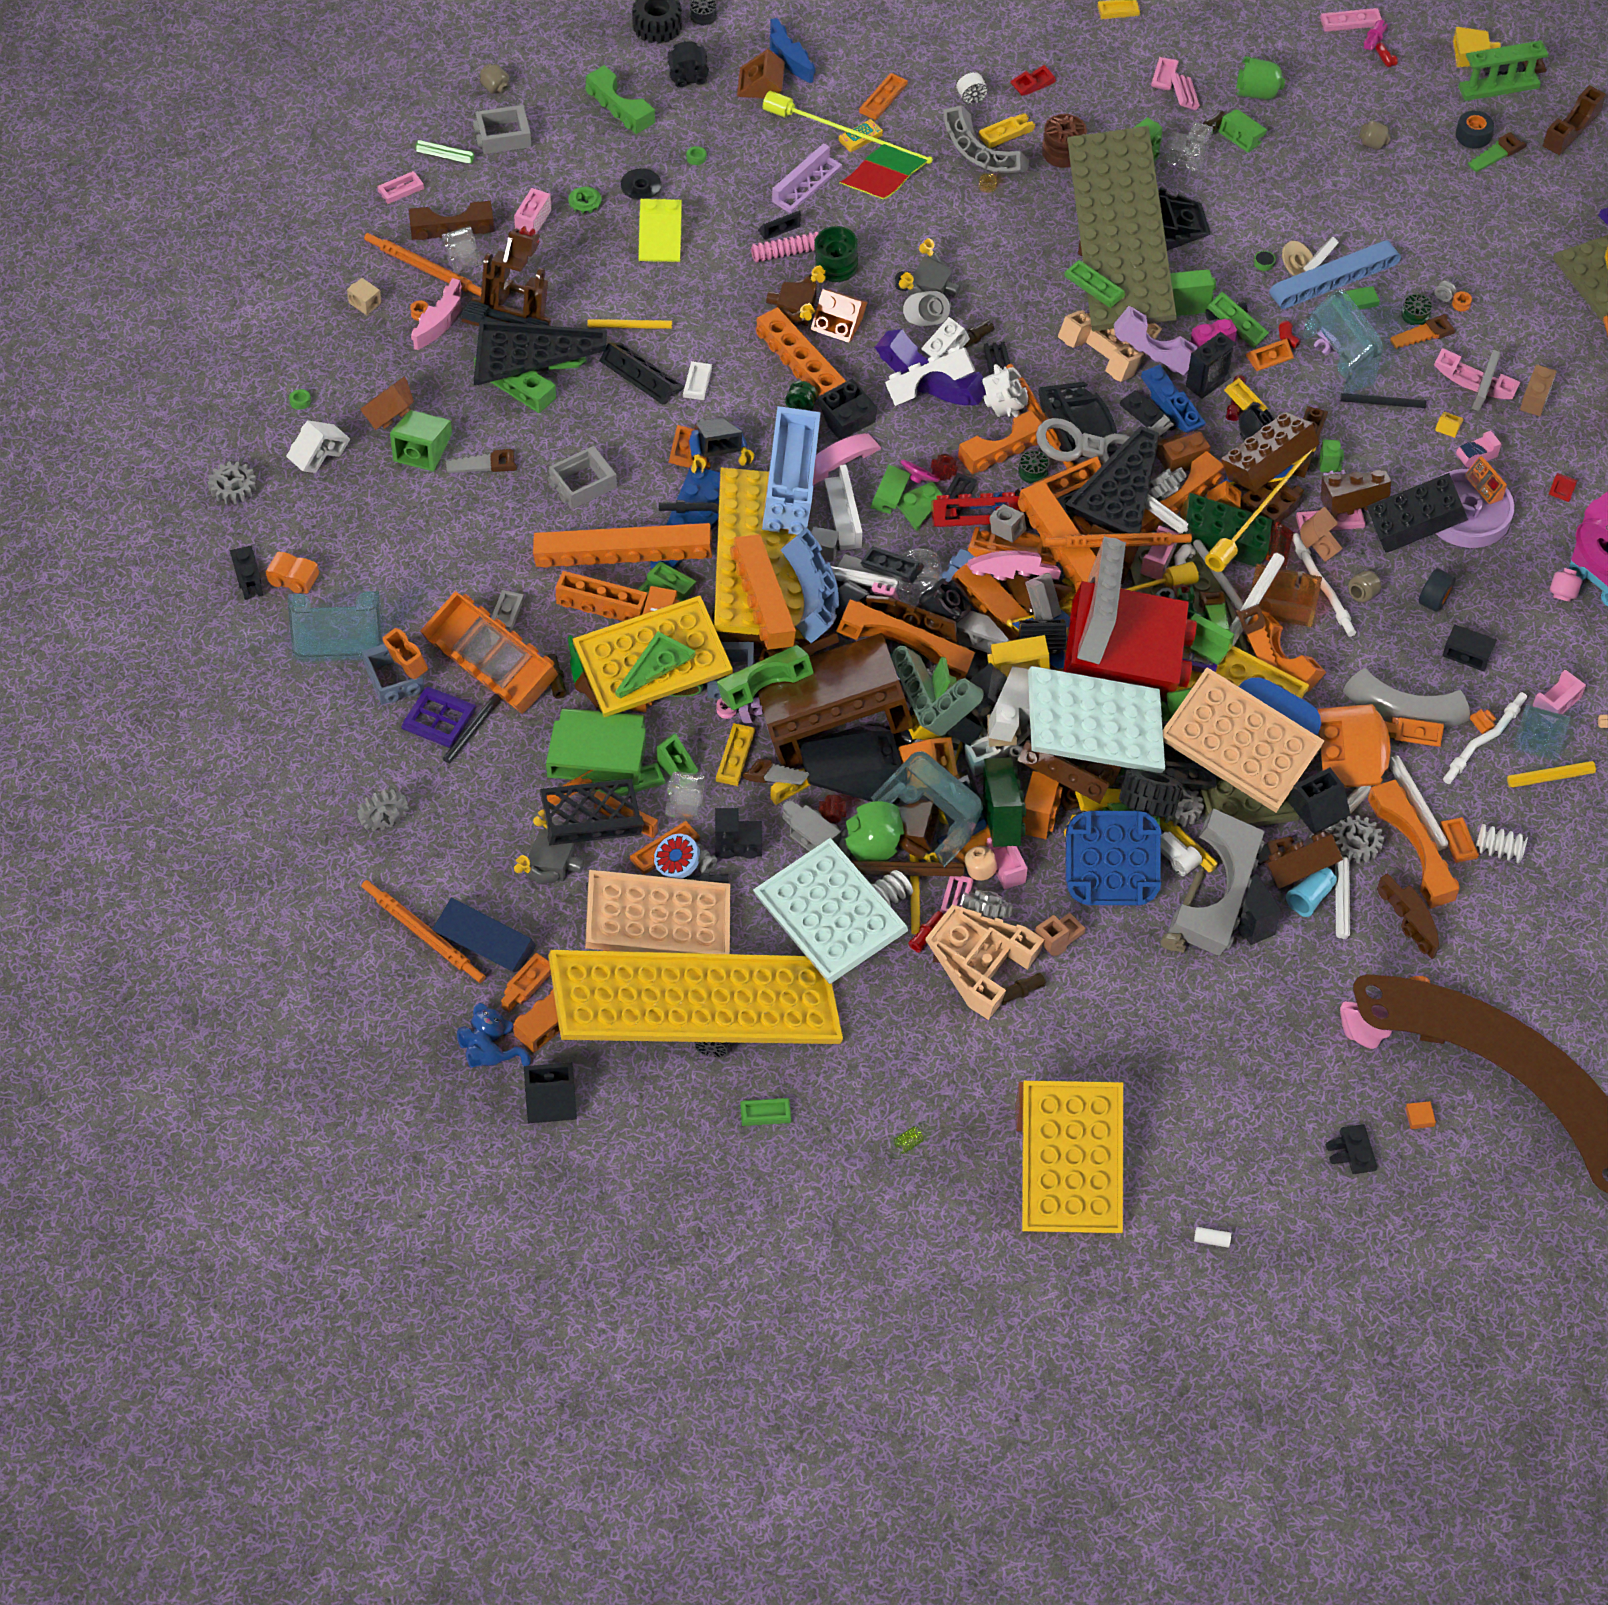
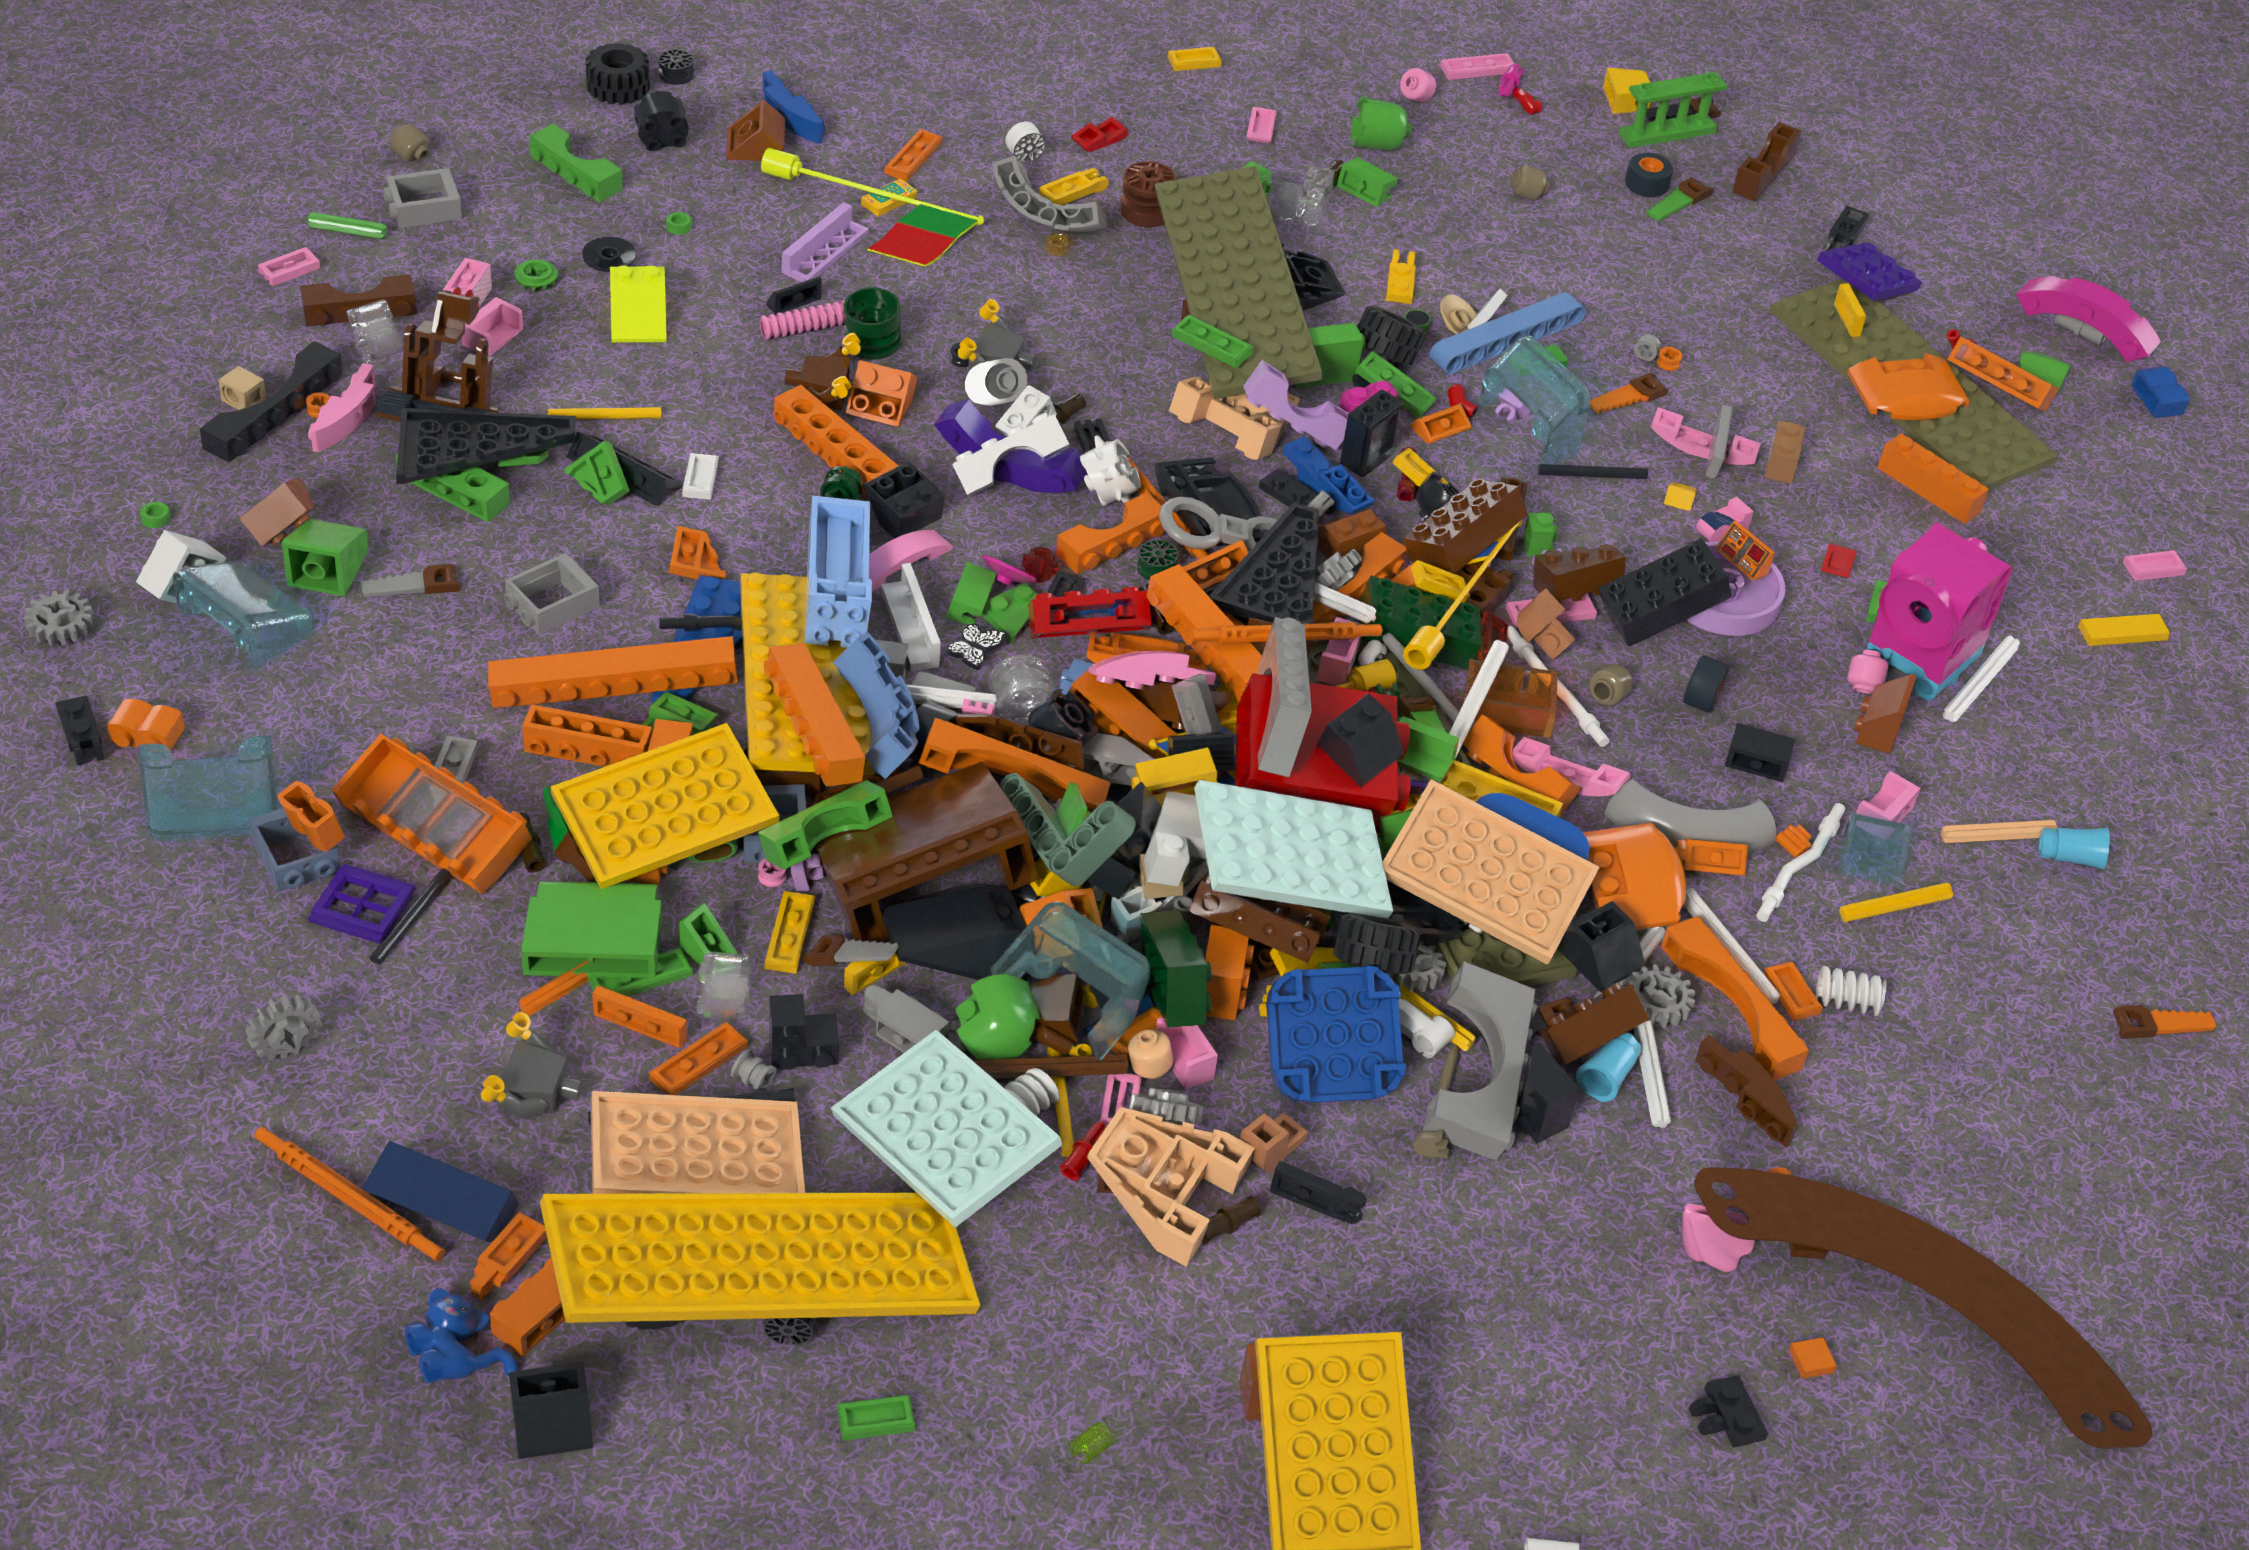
camera: 10 degrees left, 10 degrees down
(359, 331) = (235, 431): none -> black arch
(363, 480) = (244, 605): none -> clear light blue windscreen
(421, 263) = (297, 342): orange axle -> none
(553, 245) = (495, 322): none -> bright pink panel
(596, 829) = (596, 1033): black fence -> none
(623, 378) = (600, 473): none -> bright green wing
(657, 659) = (670, 808): bright green wing -> none
(677, 856) = (718, 1067): tile -> none
(717, 438) = (732, 538): black torso -> none
(833, 808) = (935, 993): clear red gear -> none
(889, 532) = (975, 645): none -> black animal
(892, 565) = (986, 677): black tile -> none
(1007, 523) = (1135, 622): light grey brick -> none
(1086, 973) = (1317, 1193): none -> black hinge
(1157, 637) = (1362, 740): none -> black slope
(1185, 91) = (1290, 142): bright pink tile -> none
(1238, 277) = (1391, 335): none -> black tyre
(1242, 497) = (1438, 581): none -> yellow plate
(1257, 221) = (1401, 279): none -> yellow hinge
(1257, 634) = (1484, 742): piece -> none
(1297, 40) = (1417, 85): none -> bright pink head
(1298, 644) = (1535, 756): none -> bright pink slope
(1416, 311) = (1616, 370): dark green wheel -> none
(1571, 621) = (1884, 713): none -> dark orange slope

